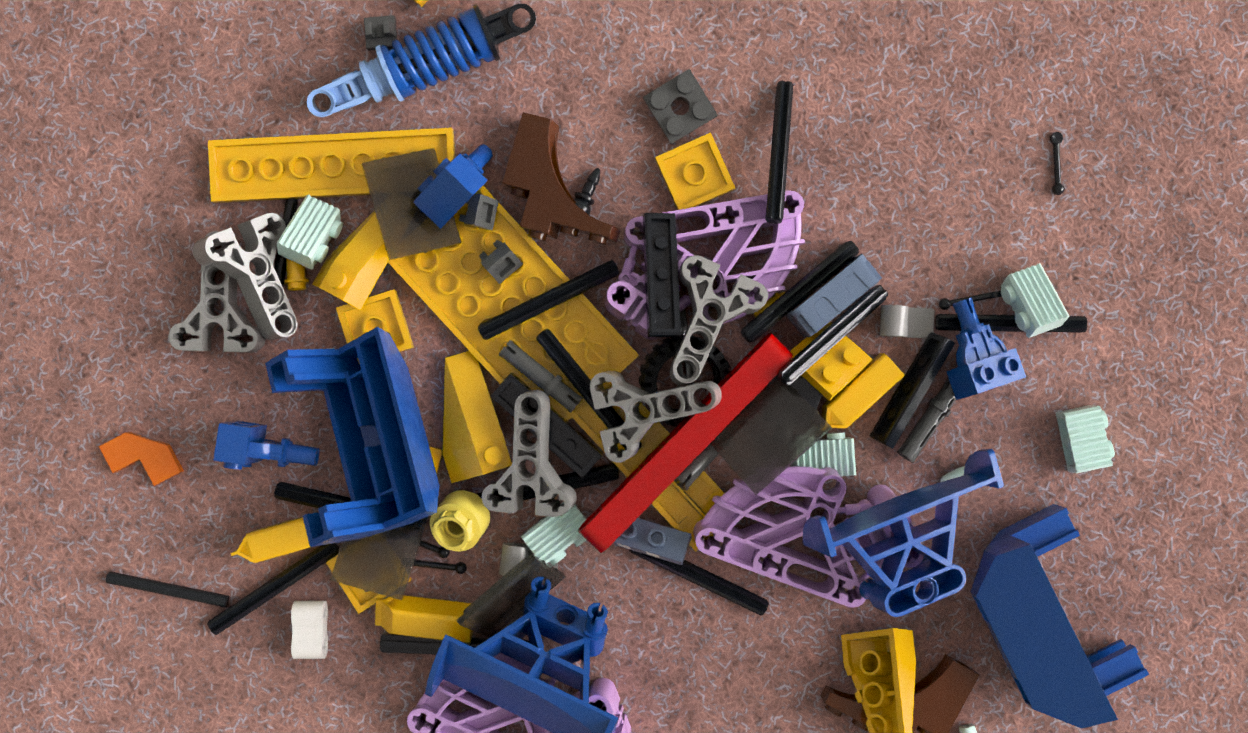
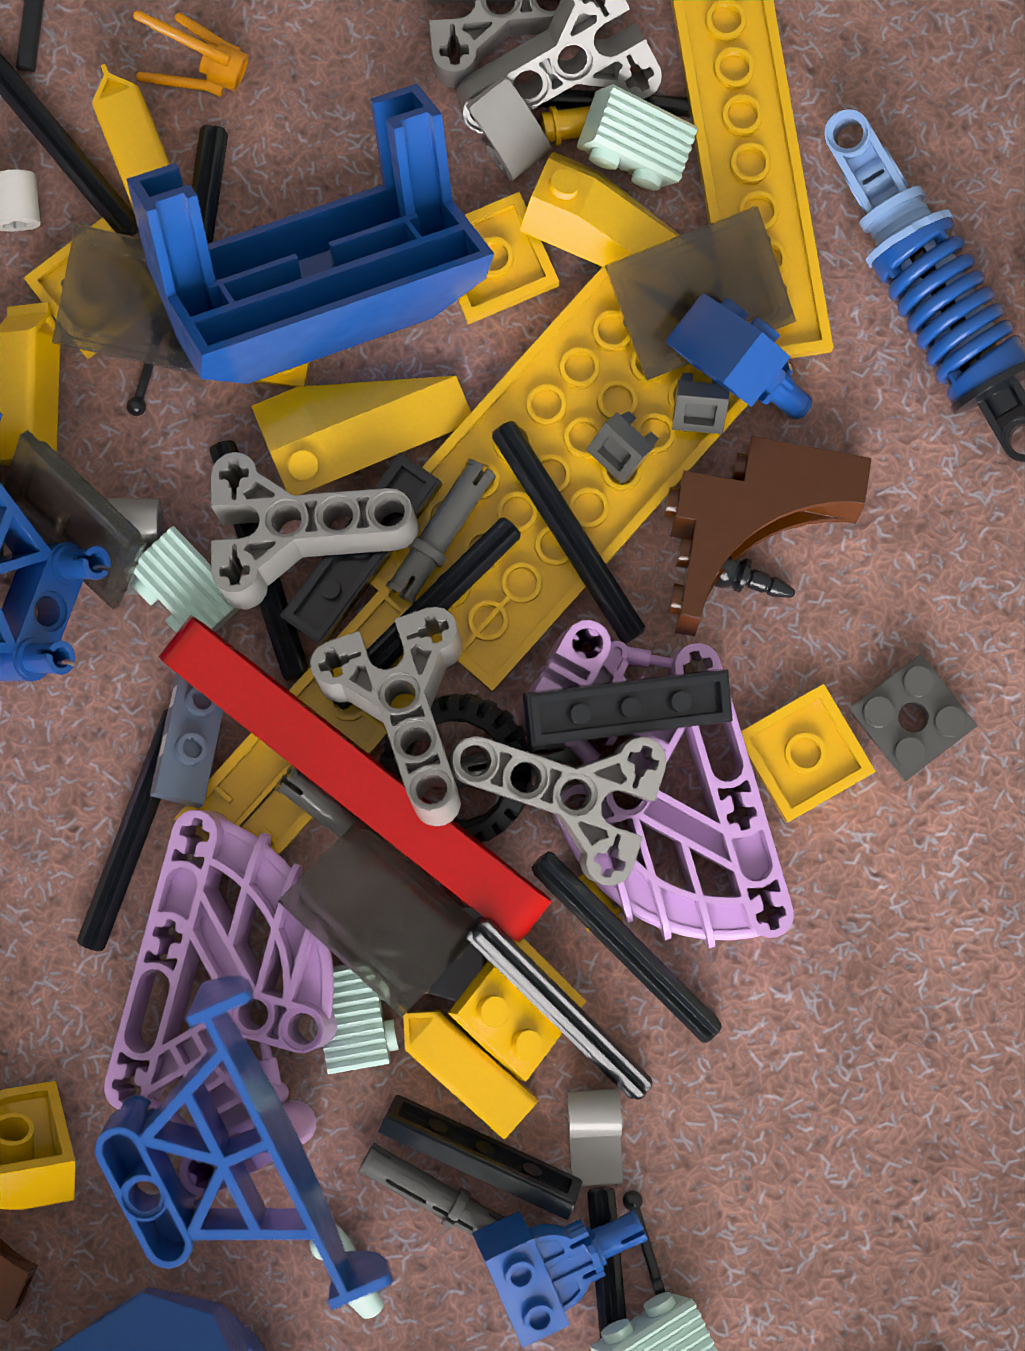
camera: 80 degrees right, 5 degrees down
(233, 482) = (220, 61): none -> light orange plant
(245, 443) = (285, 70): blue brick -> none
(296, 308) = (510, 128): none -> light grey panel
(380, 31) = (976, 218): dark grey tile -> none
(459, 521) = (189, 424): light yellow piece -> none
(460, 567) = (113, 435): black hinge -> none
(779, 152) = (855, 888): black axle -> none
(834, 296) = (625, 1002): sand blue axle -> none

